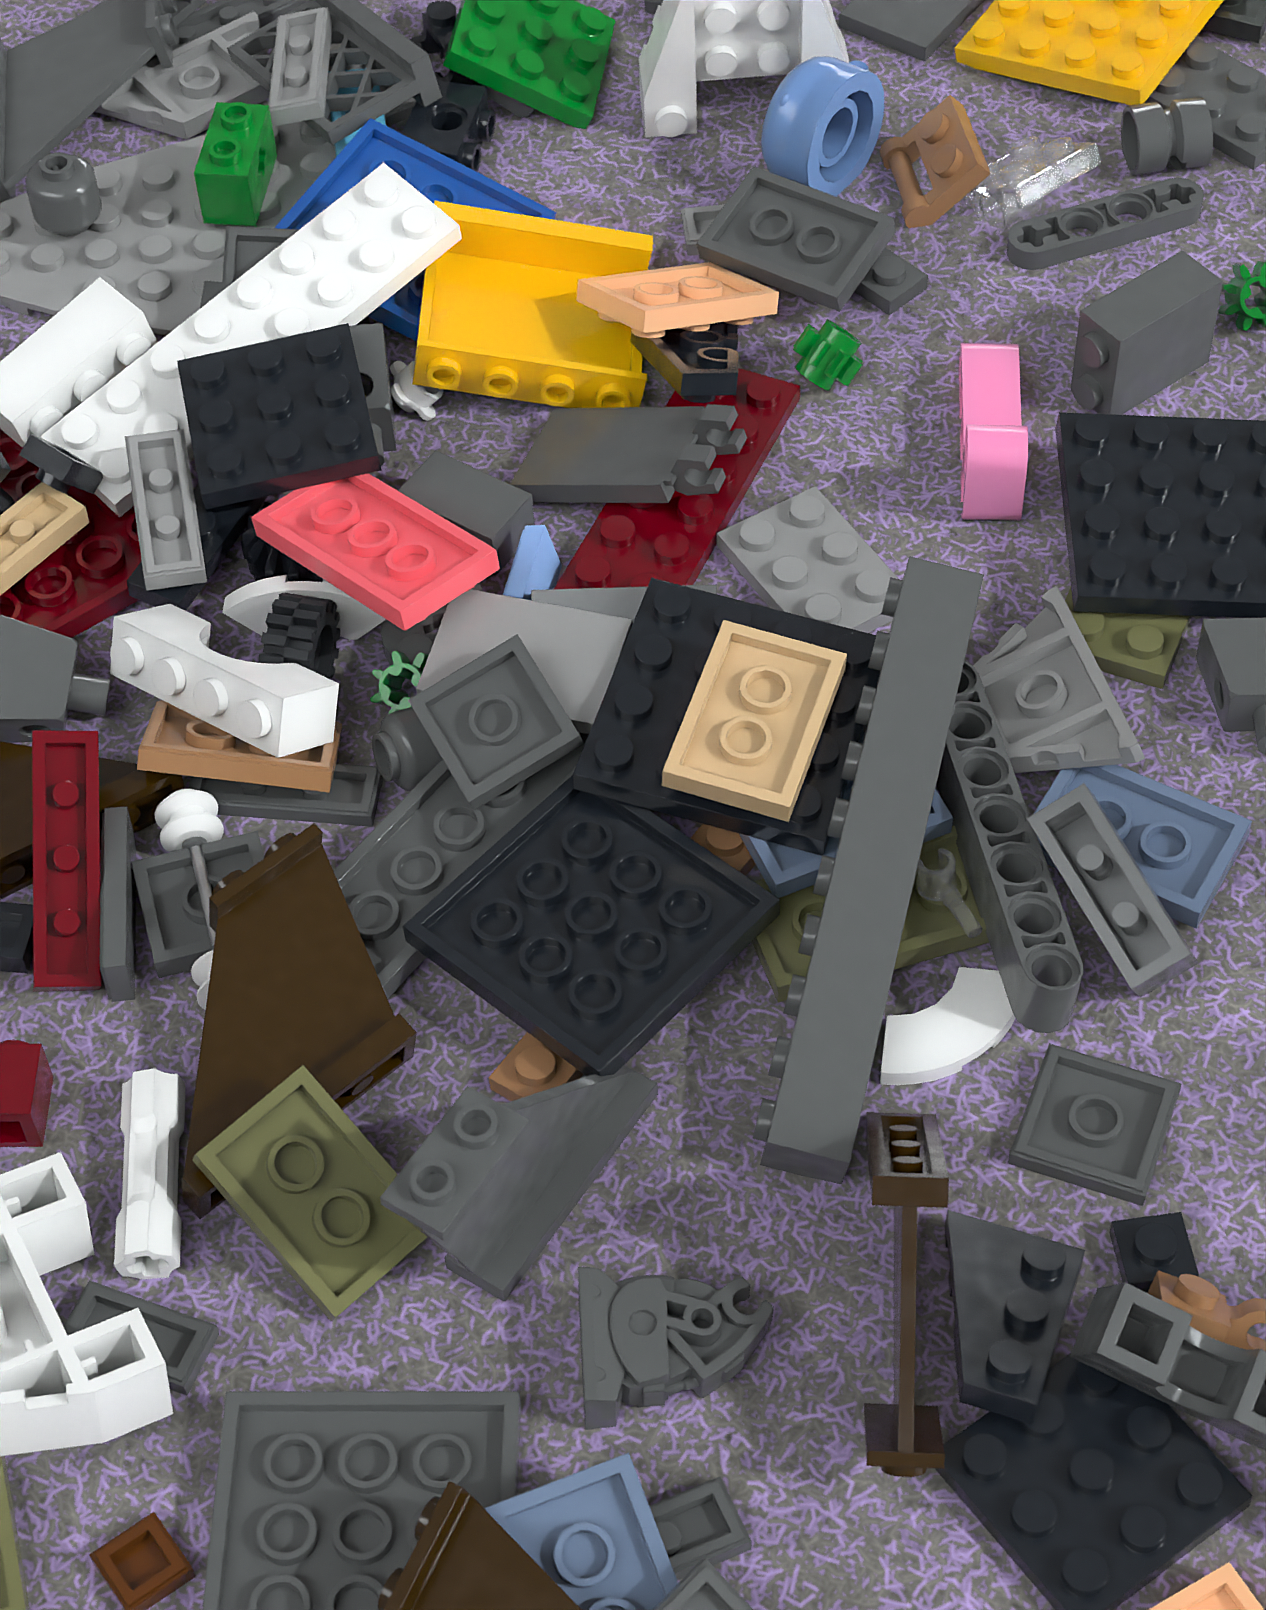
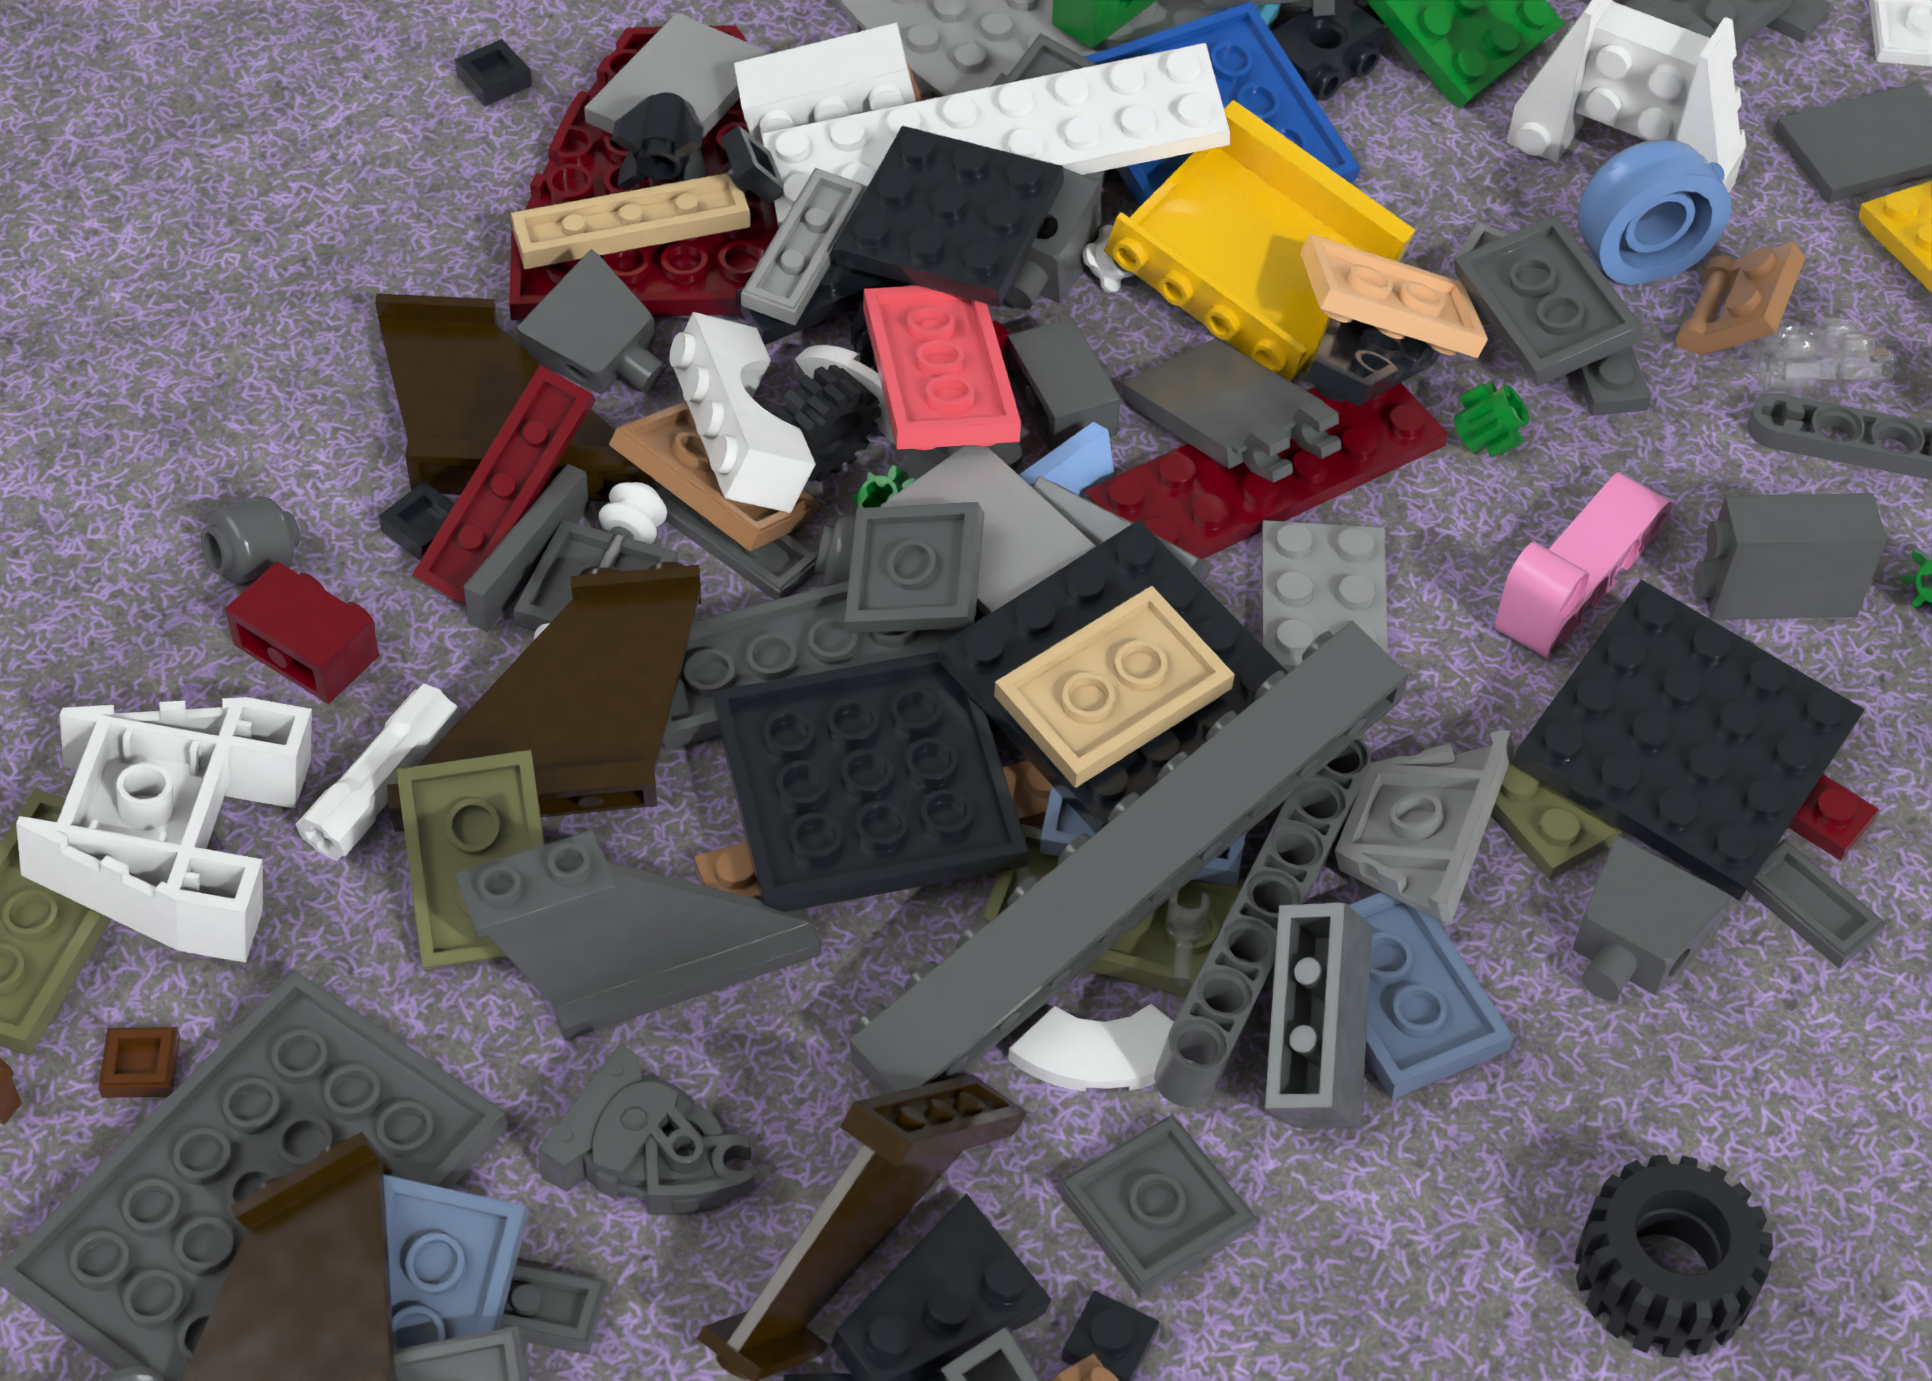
camera: 30 degrees right, 0 degrees up
(179, 1337) = (291, 905): dark grey tile -> none

